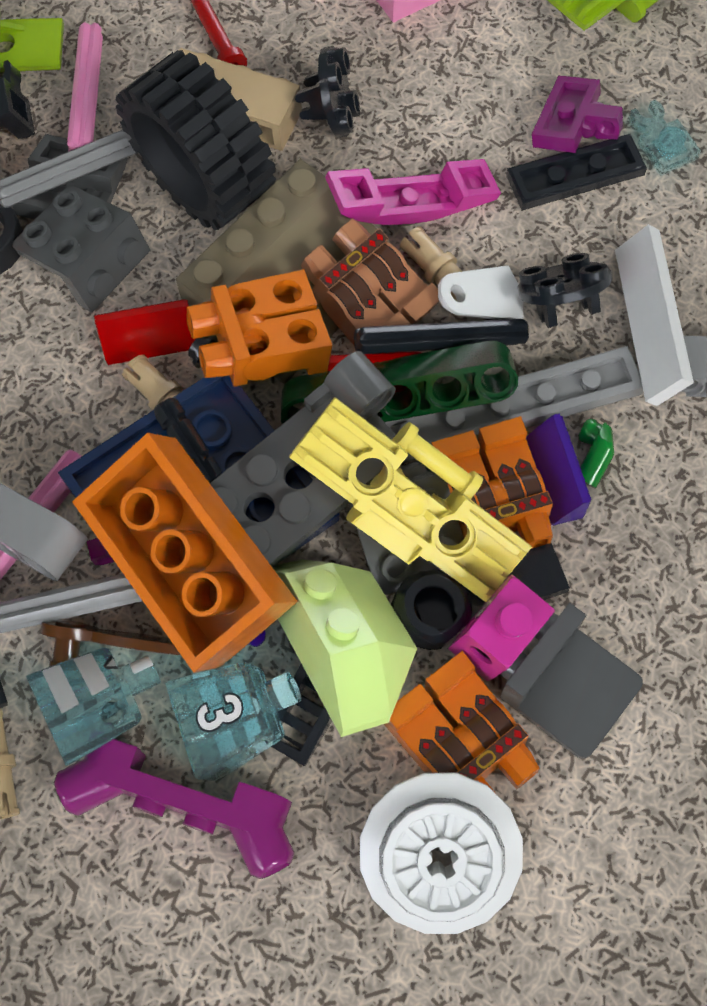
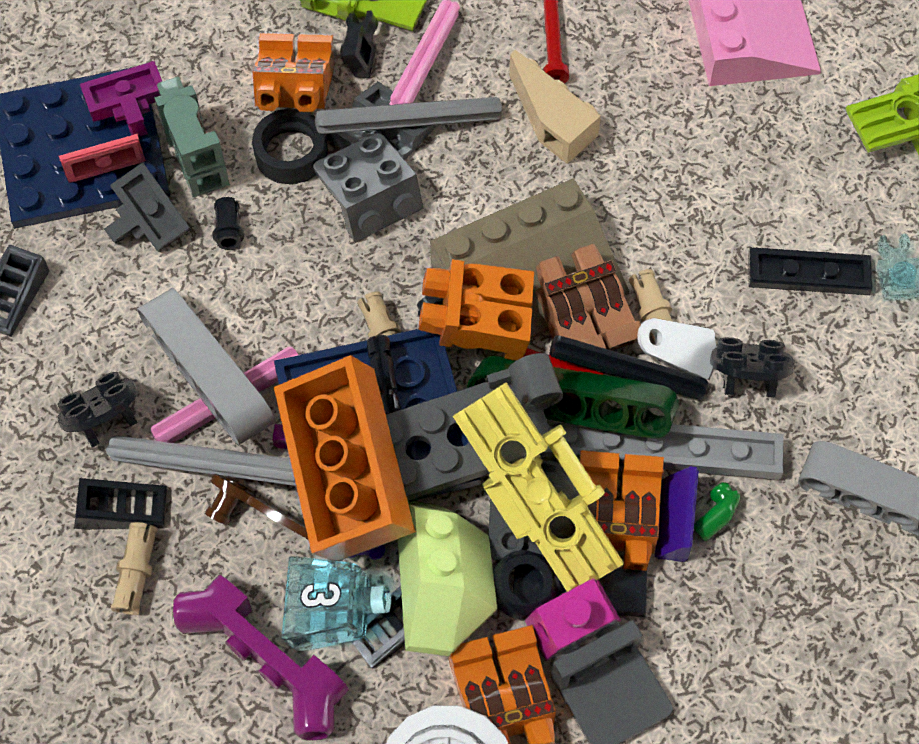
camera: 20 degrees right, 5 degrees down
(90, 699) = (227, 546): clear light blue torso -> none
(144, 331) = (388, 273): red slope -> none
(196, 139) = (492, 134): black tyre -> none
(330, 92) = (626, 133): black plate -> none
(412, 198) = (657, 243): dark pink slope -> none
(575, 113) = (827, 220): magenta hinge -> none
(653, 316) = (815, 417): white tile -> none

